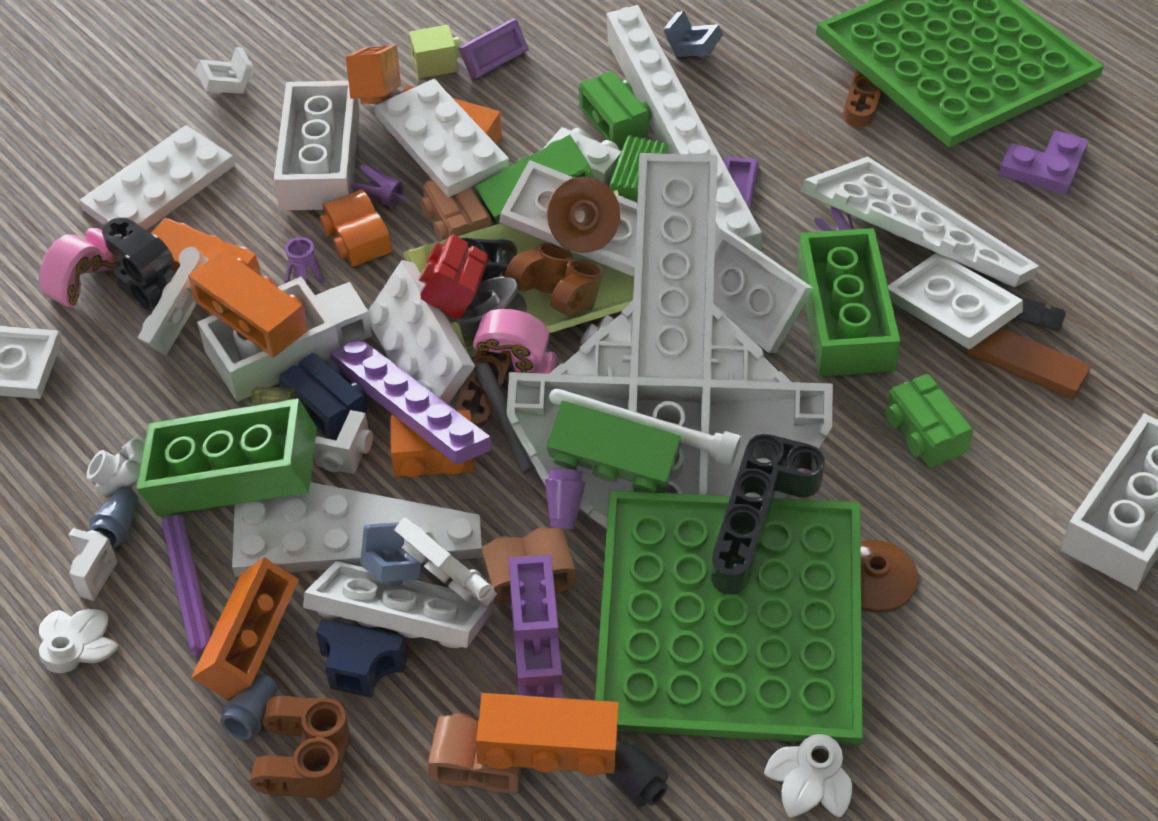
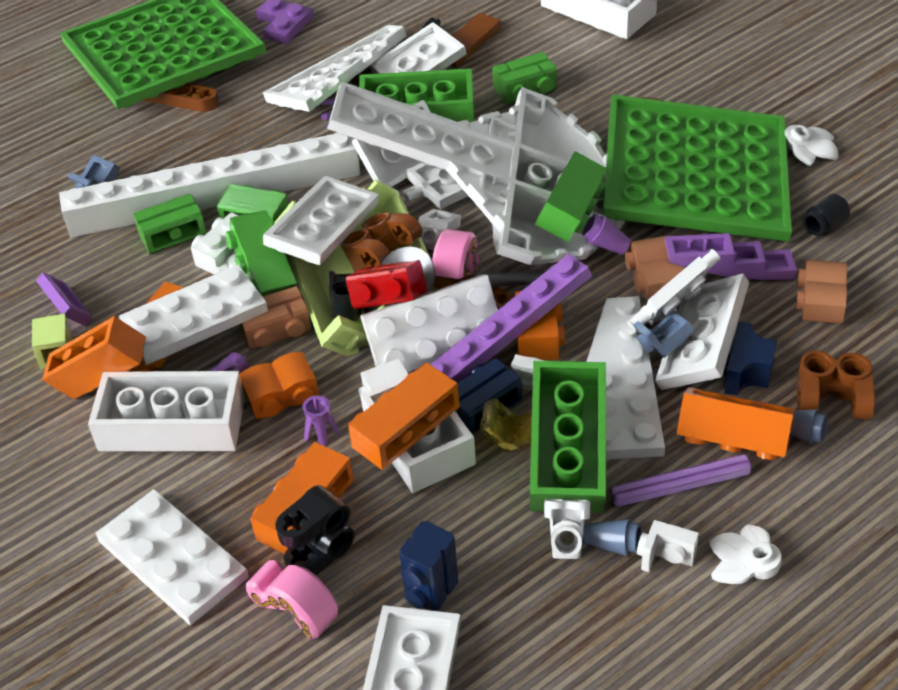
camera: 85 degrees left, 5 degrees down
(82, 353) = (428, 566): none -> dark blue brick
(175, 305) = (368, 495): white plate -> none
(226, 76) = (27, 499): white bracket -> none
(547, 733) = (824, 233): orange brick -> none
(600, 211) = (337, 201): dark orange dish -> none
(720, 446) = (570, 142): white piece -> none
(752, 513) = (629, 131): black beam -> none

